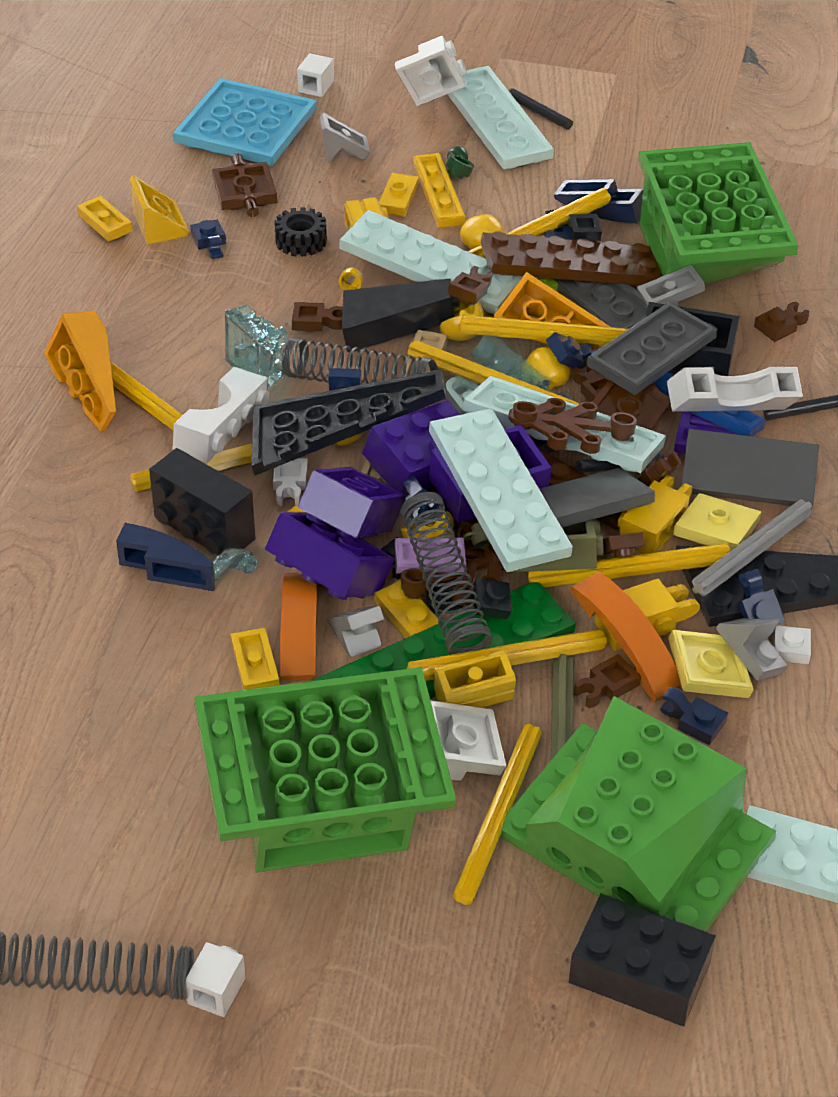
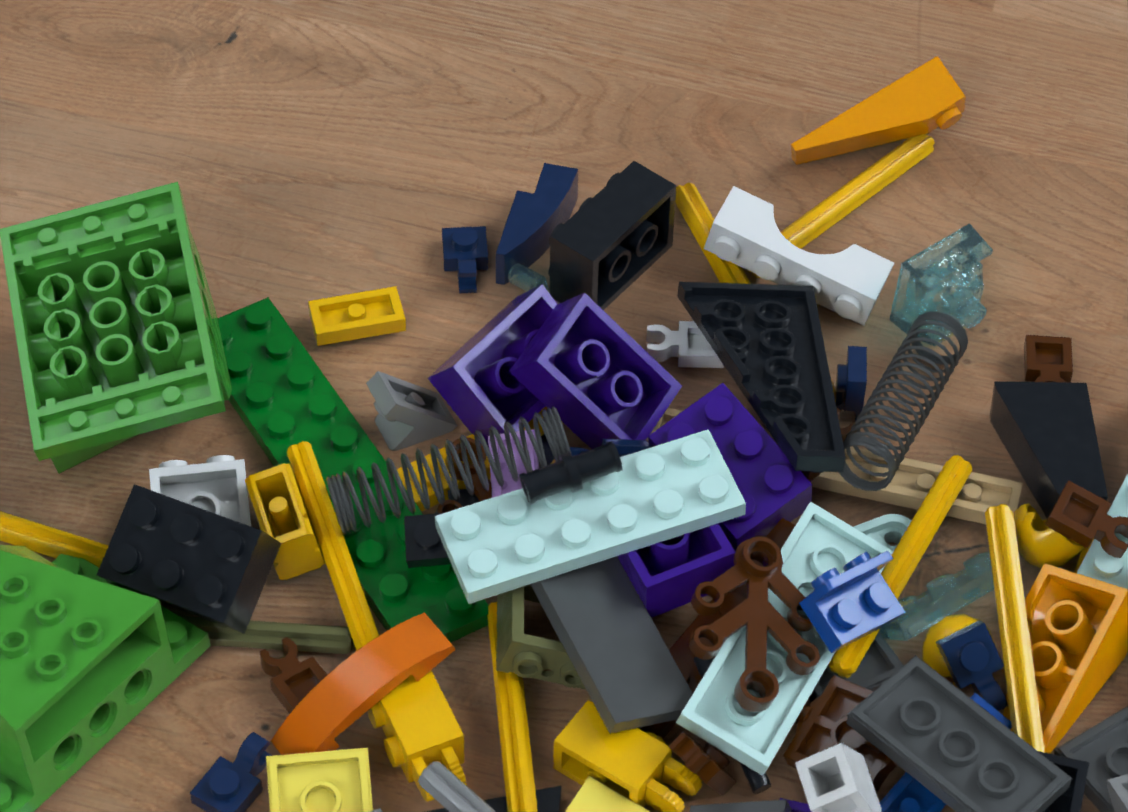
camera: 90 degrees right, 5 degrees up
(187, 602) = (465, 252): none -> dark blue plate
(298, 628) = (397, 353): orange slope -> none
(484, 477) = (570, 472): none -> black pin
(531, 722) = (189, 558): none -> black brick
(544, 380) = (852, 602): none -> bracket
(623, 544) = (537, 699): reddish brown plate -> none

